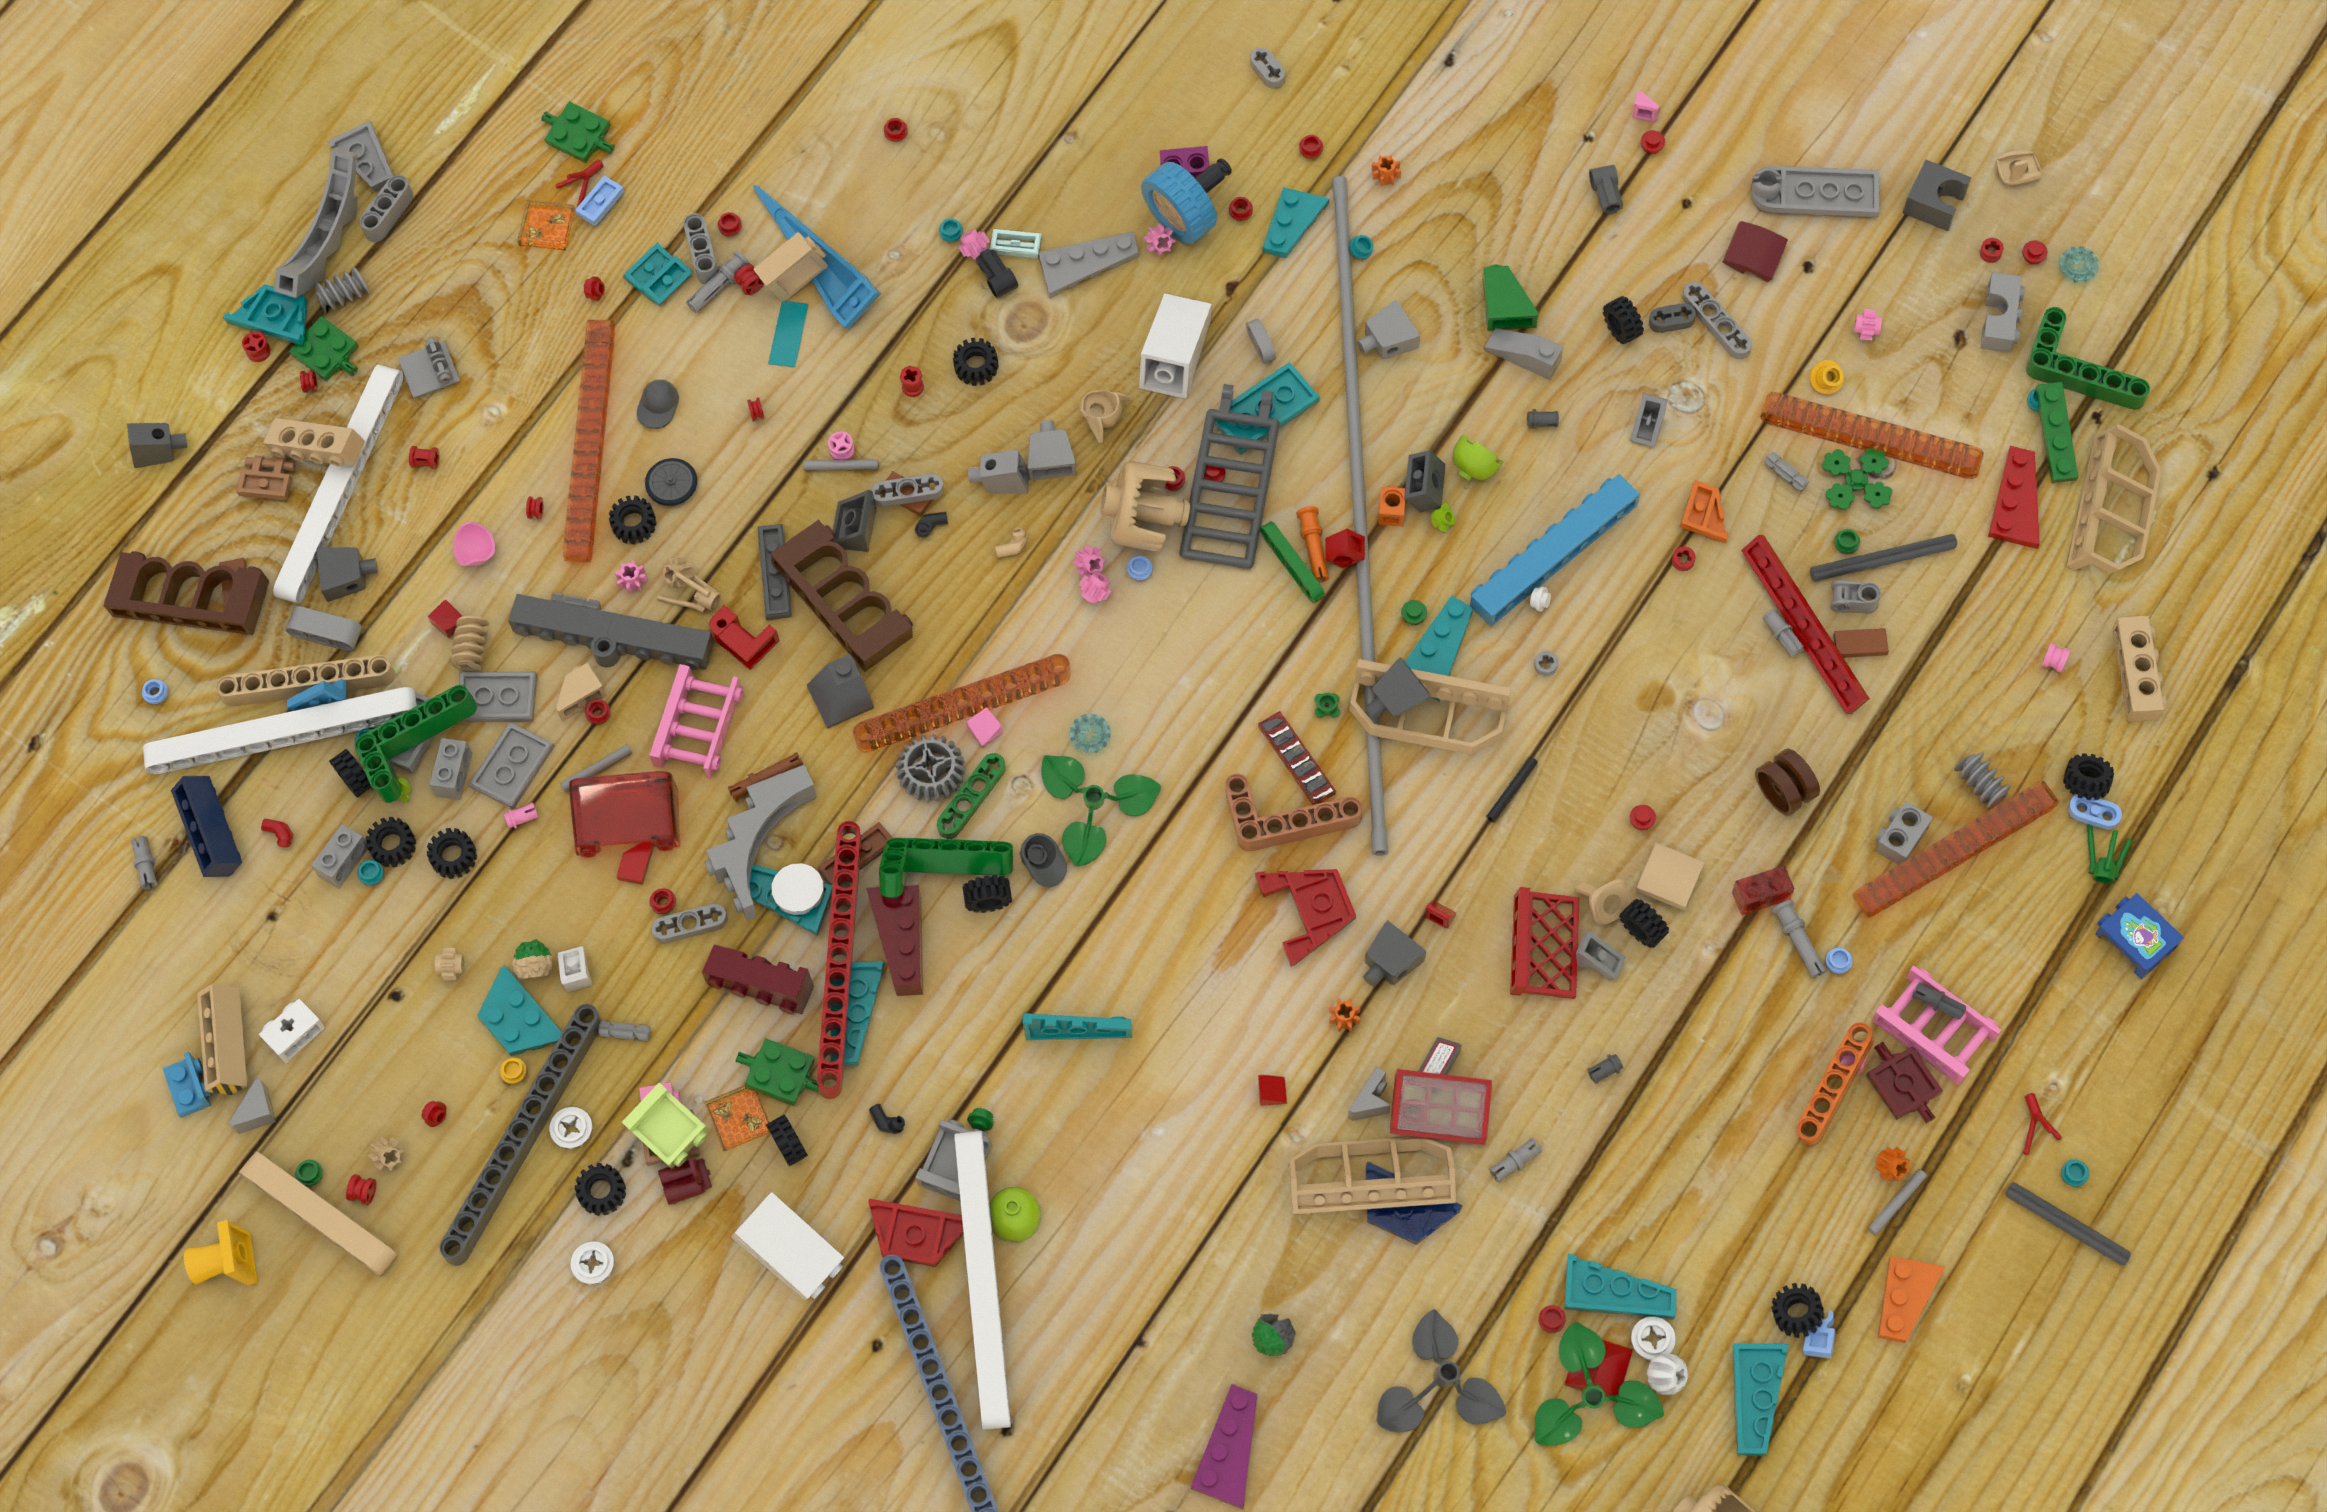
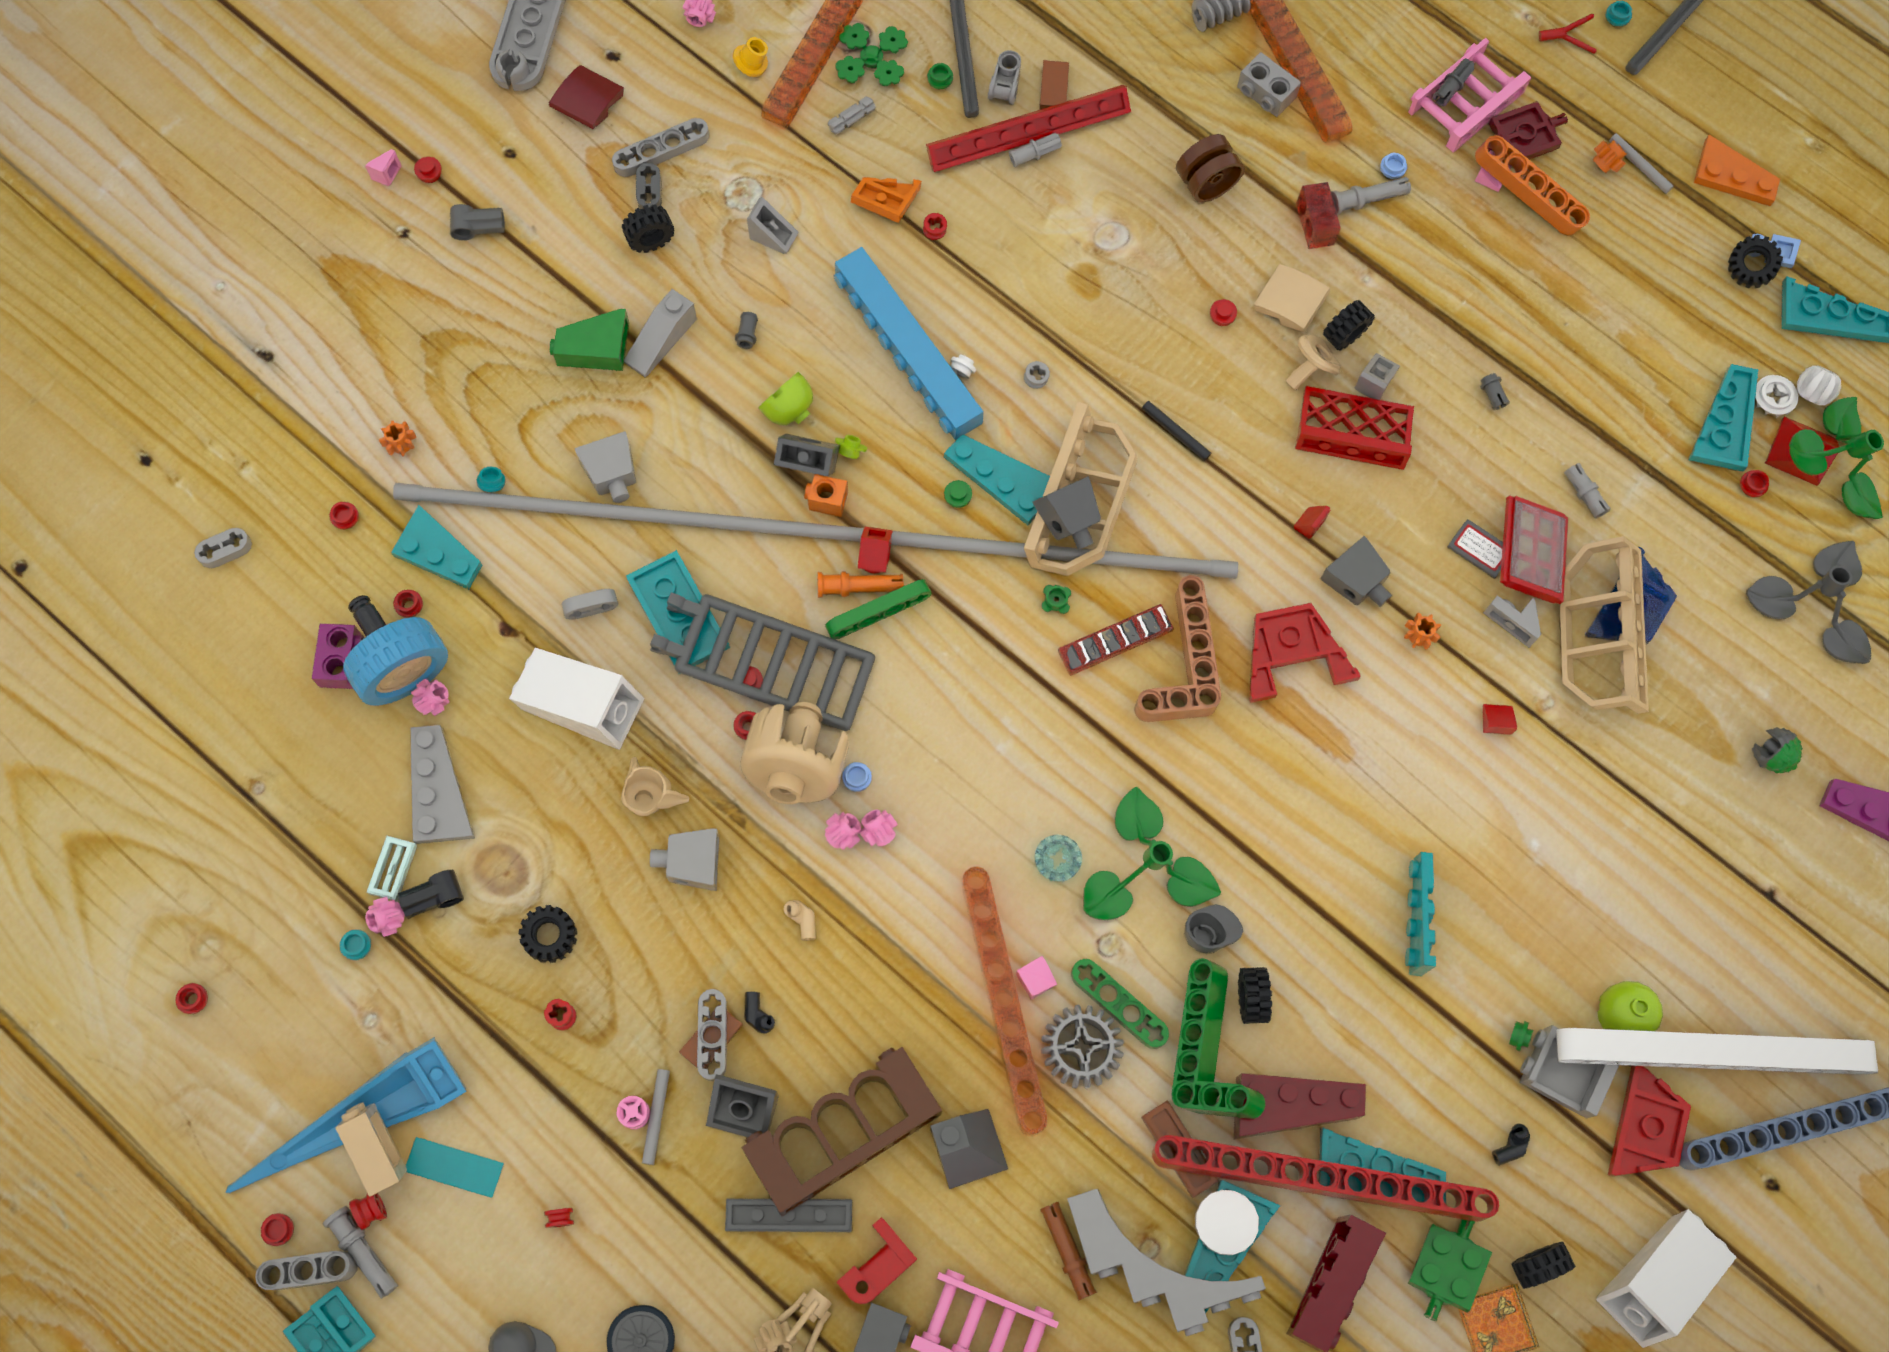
camera: 90 degrees left, 5 degrees up
(1002, 473) = (714, 906): light grey torso -> none

